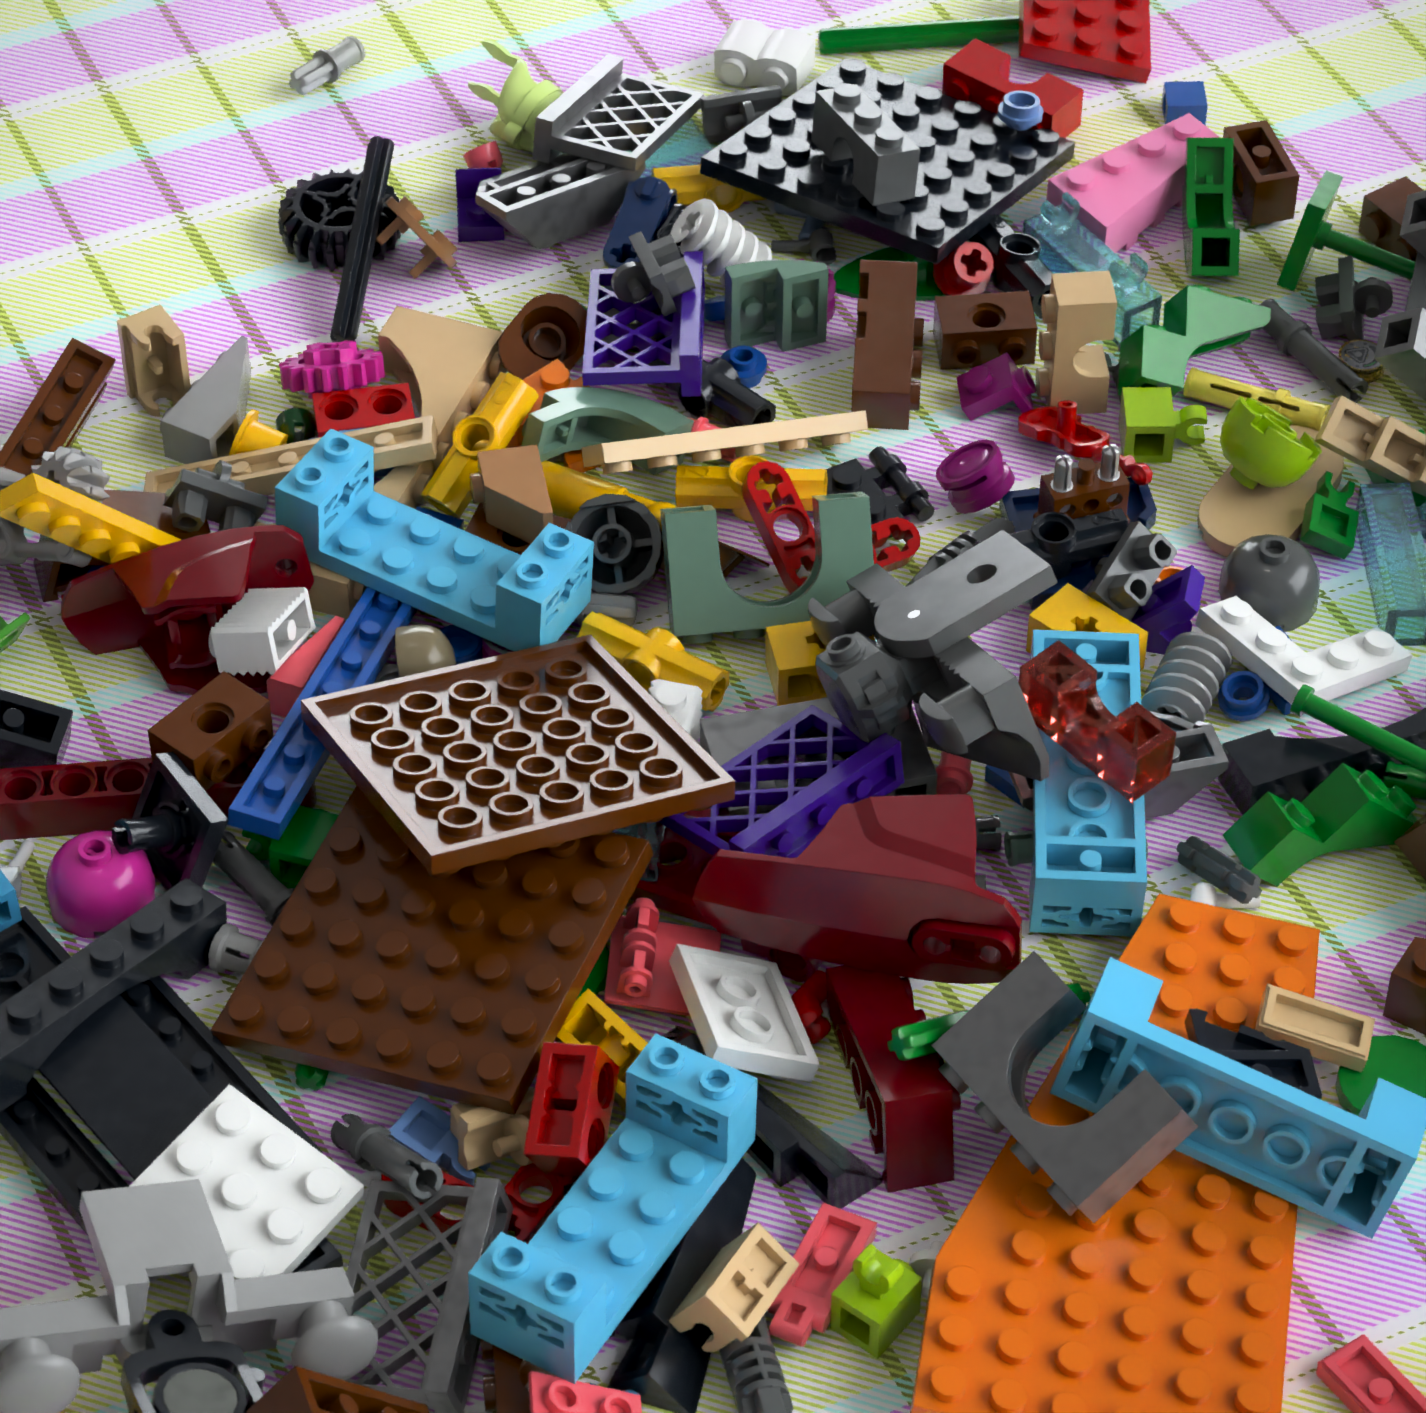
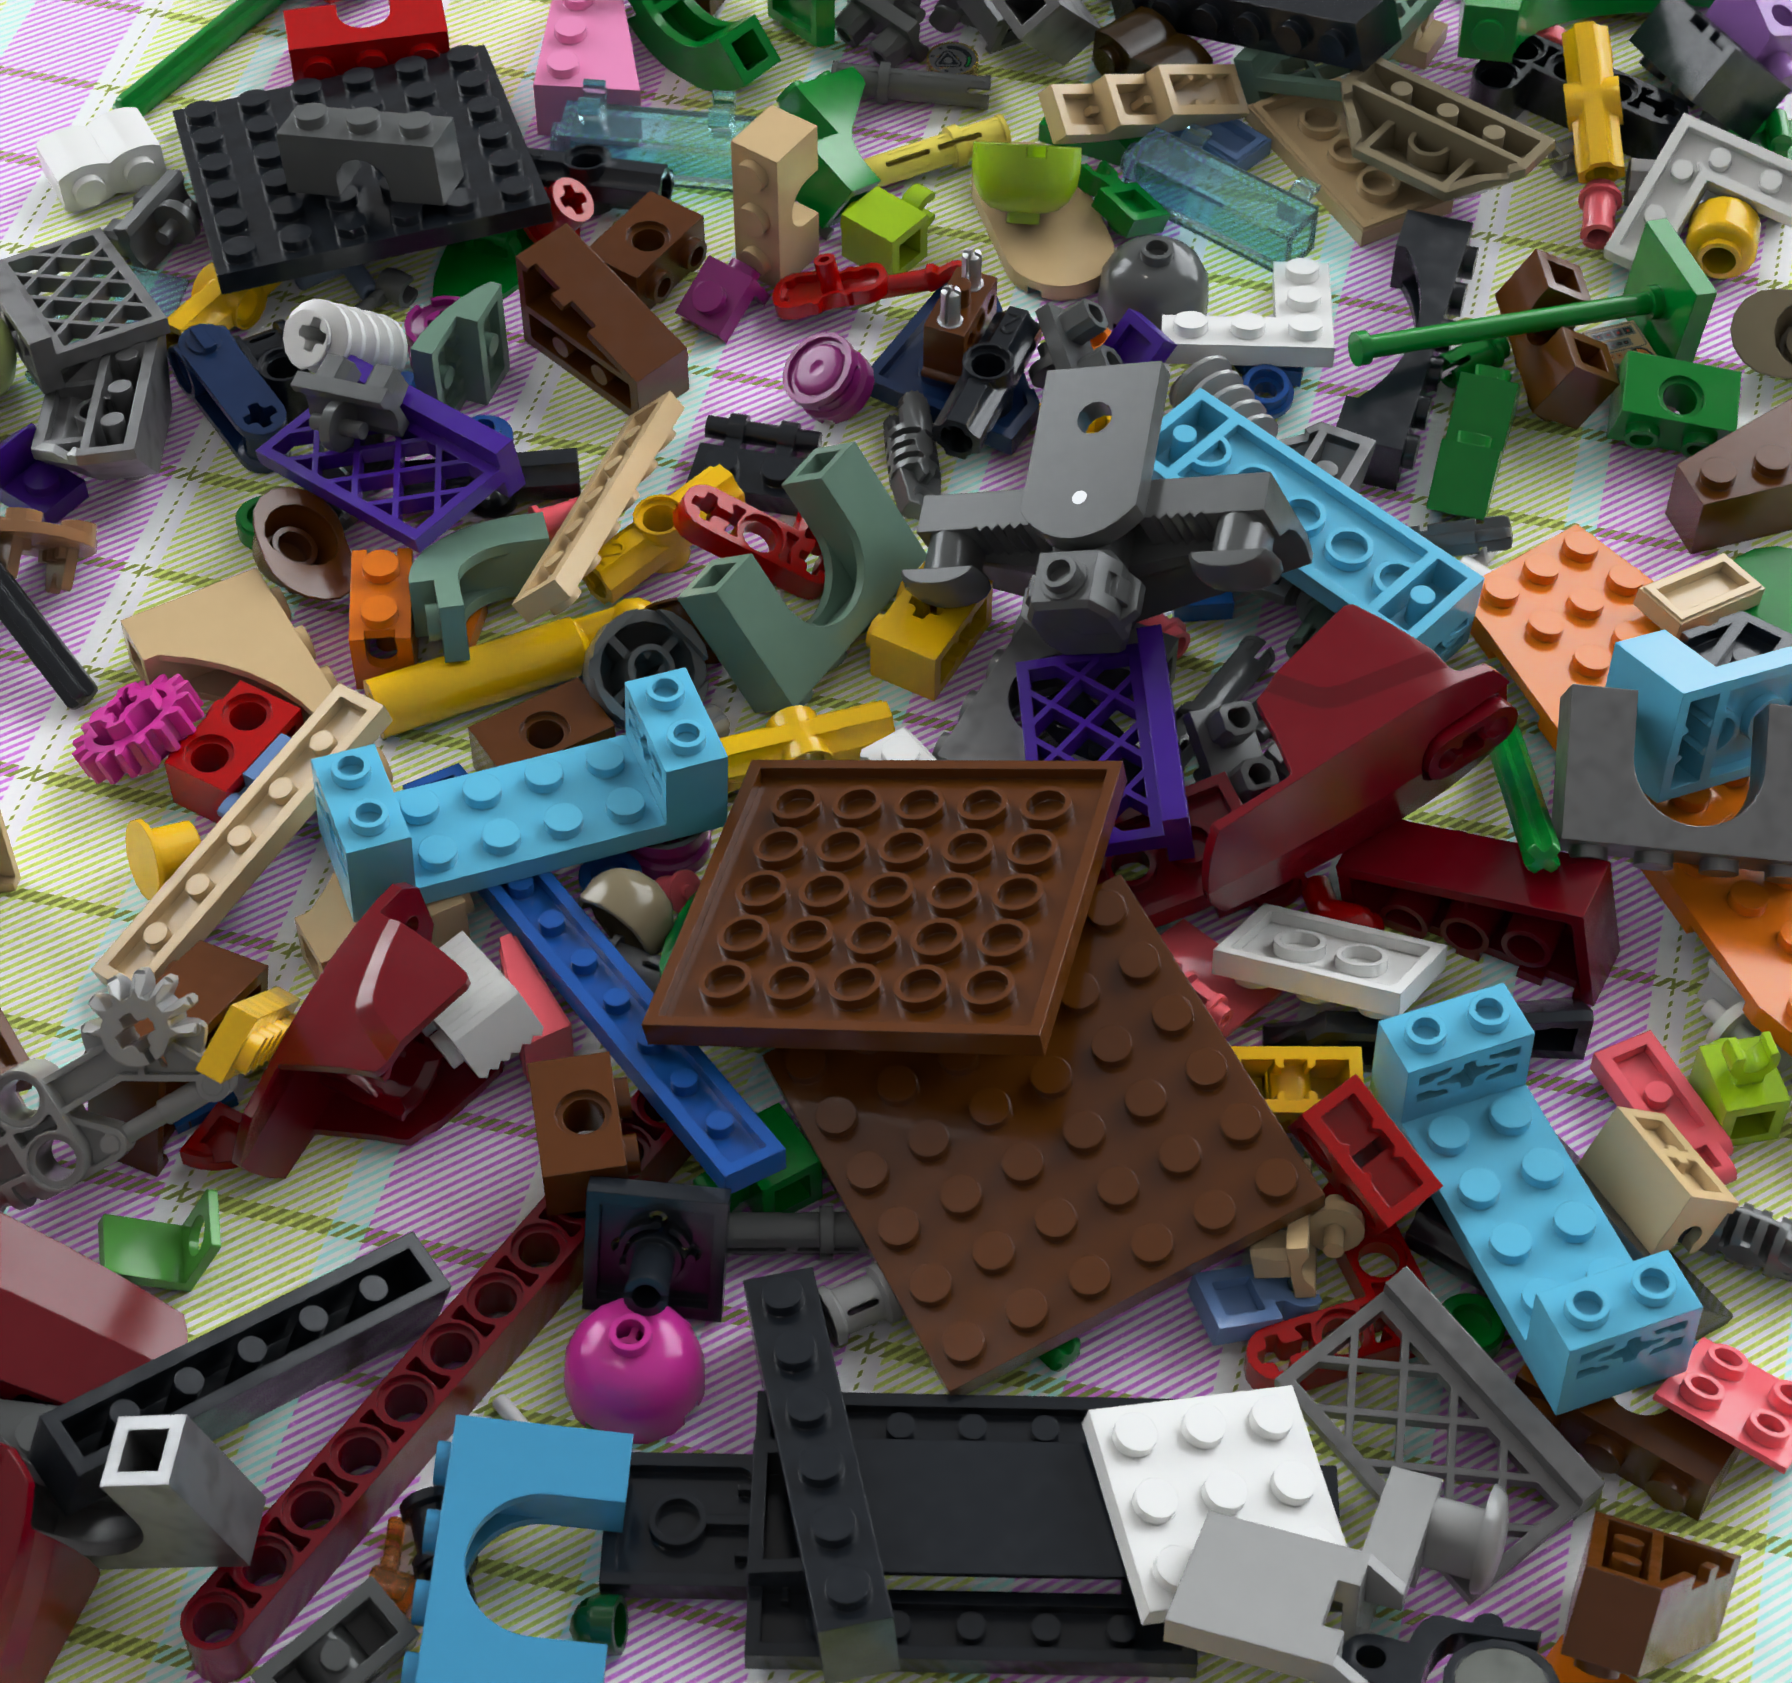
camera: 50 degrees left, 5 degrees up
(211, 411) = (79, 859): light grey slope -> none
(214, 498) = (247, 924): dark grey hips -> none
(294, 418) = (172, 806): dark green hinge -> none
(379, 1152) = (1232, 1351): dark grey pin -> none
(494, 419) = (403, 641): yellow piece -> none
(513, 491) = (519, 691): medium nougat slope -> none
(1020, 110) = (421, 43): medium blue plate -> none
(1124, 750) = (1352, 483): clear red arch -> none

